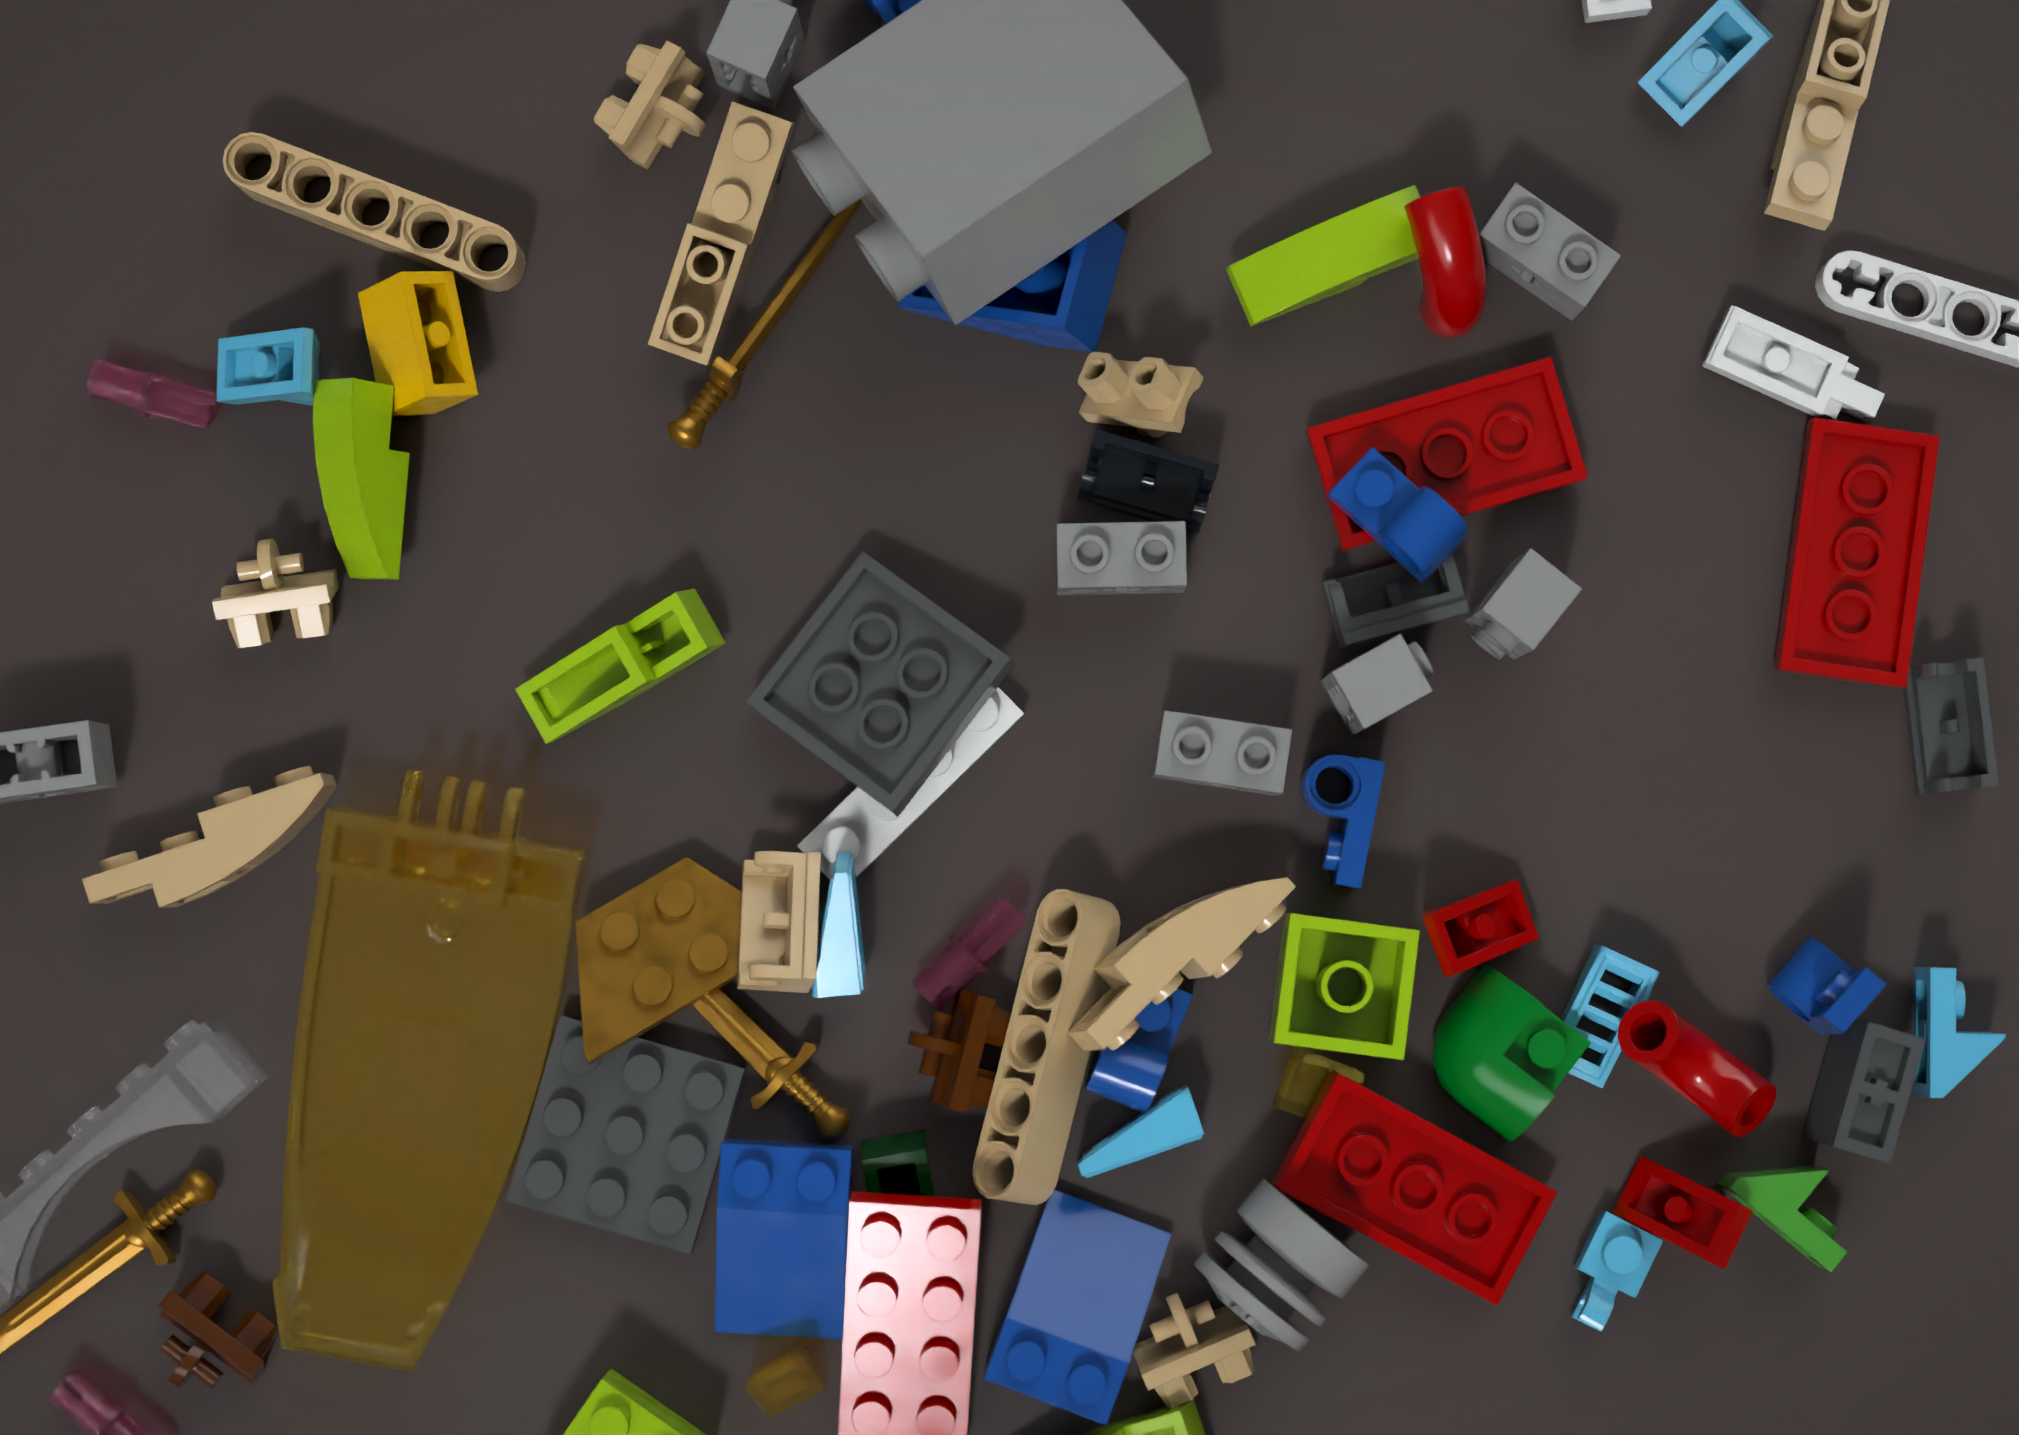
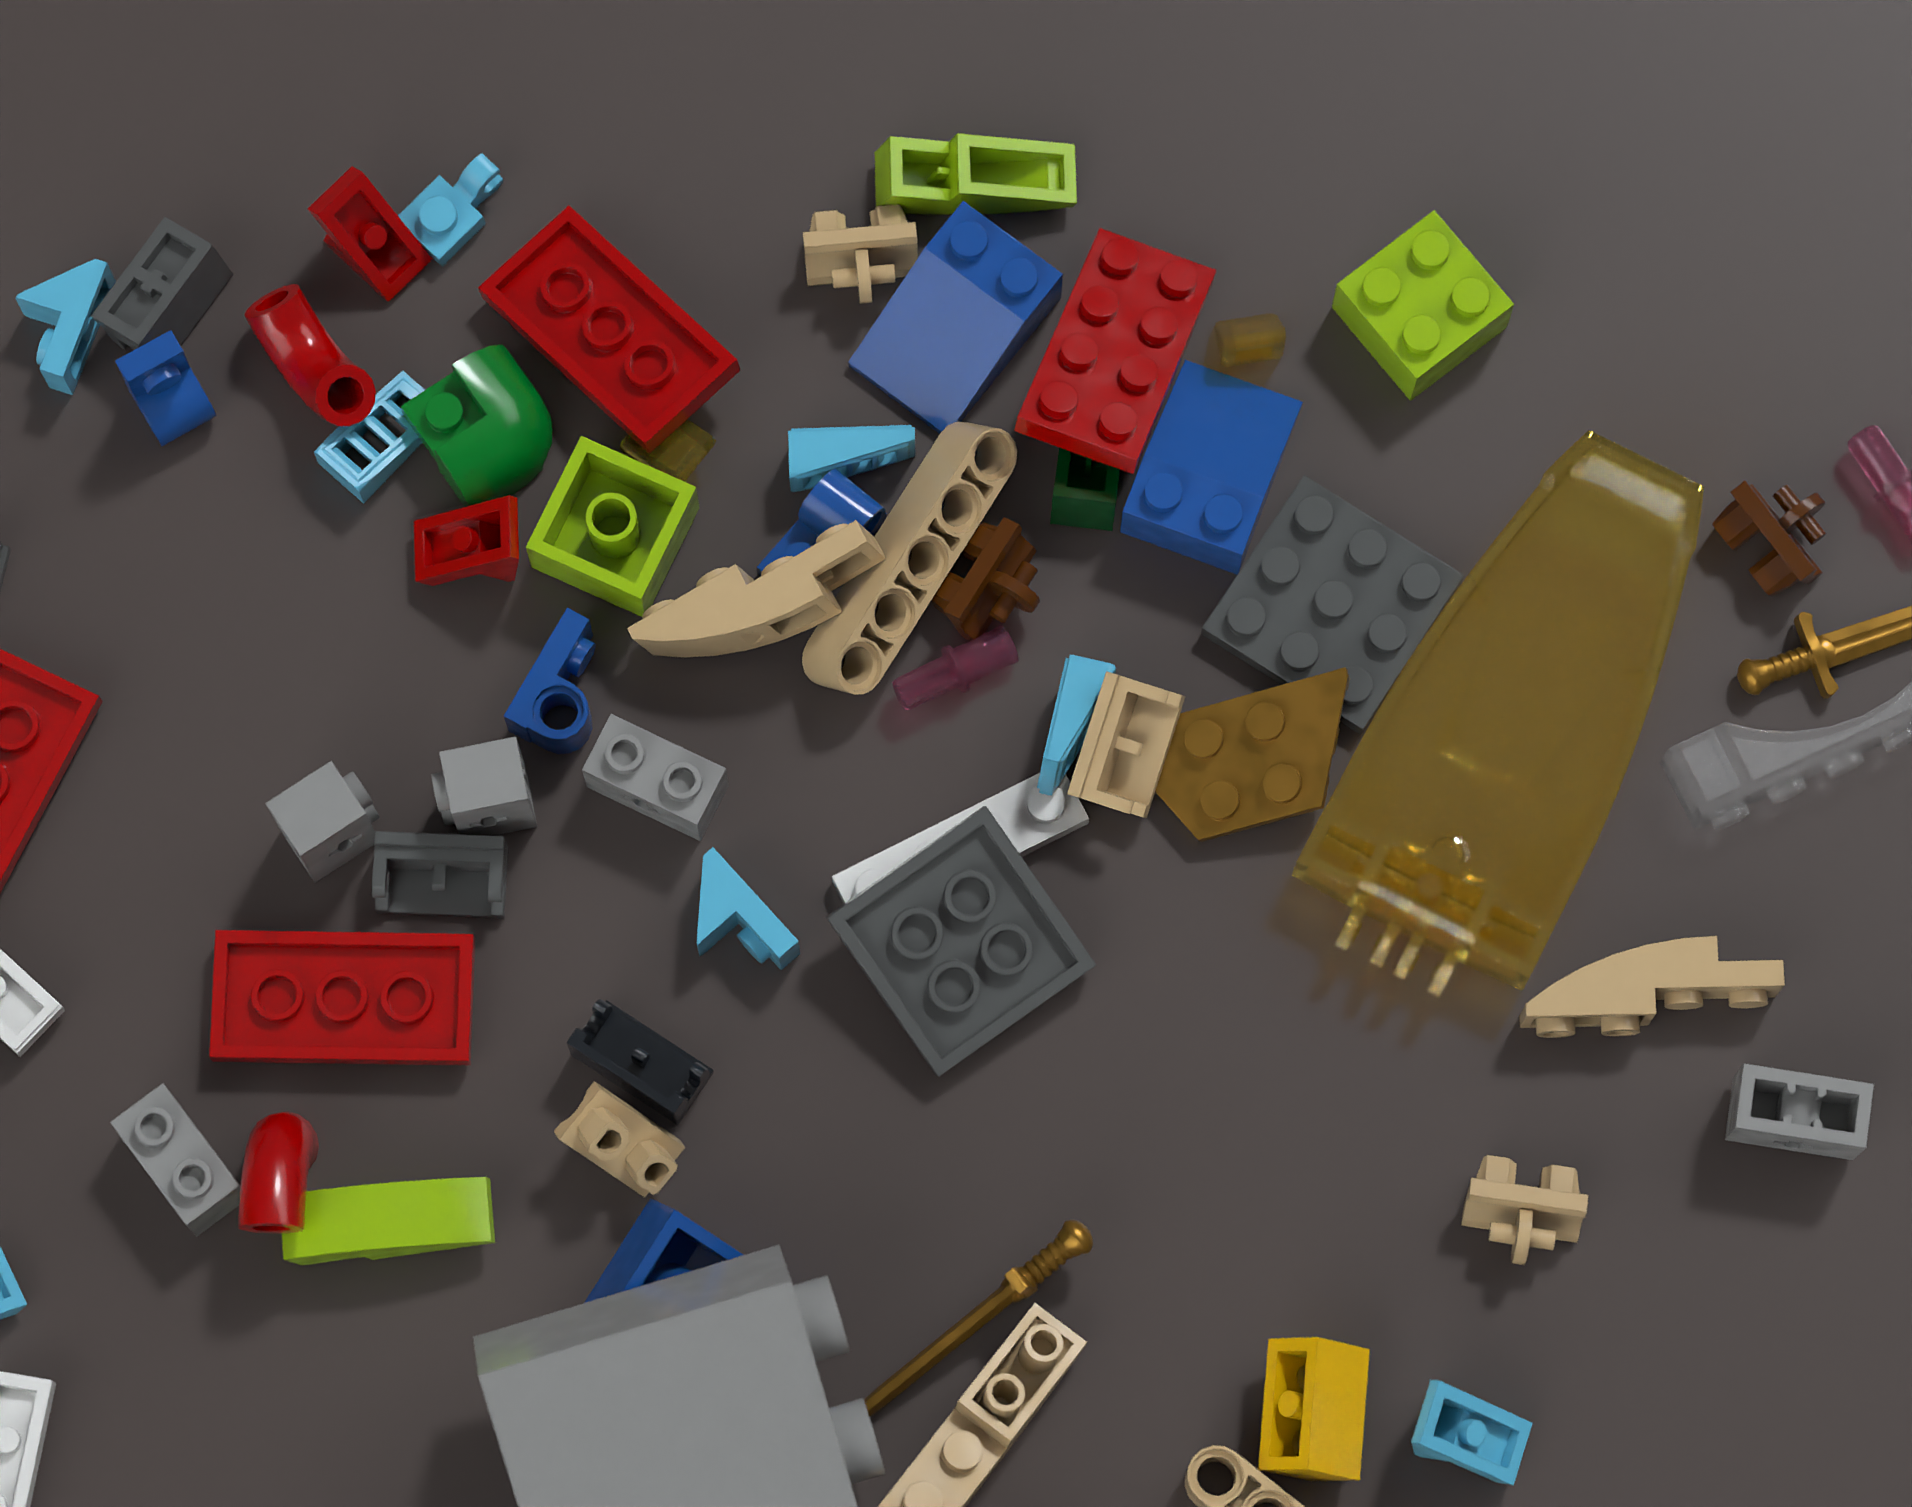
camera: 165 degrees left, 10 degrees down
(151, 394) = (1594, 1449): clear pink axle -> none
(359, 474) = (1406, 1297): lime slope -> none
(620, 665) = (1206, 1040): lime slope -> none
(773, 1063) = (1173, 625): pearl gold sword -> none
(1115, 658) = (730, 902): none -> medium azure slope
(1121, 558) = (690, 990): light grey brick -> none
(1280, 1266) = (758, 292): light grey wheel -> none
(1404, 520) = (411, 944): blue plate -> none
(1775, 1199) = (276, 221): bright green slope -> none

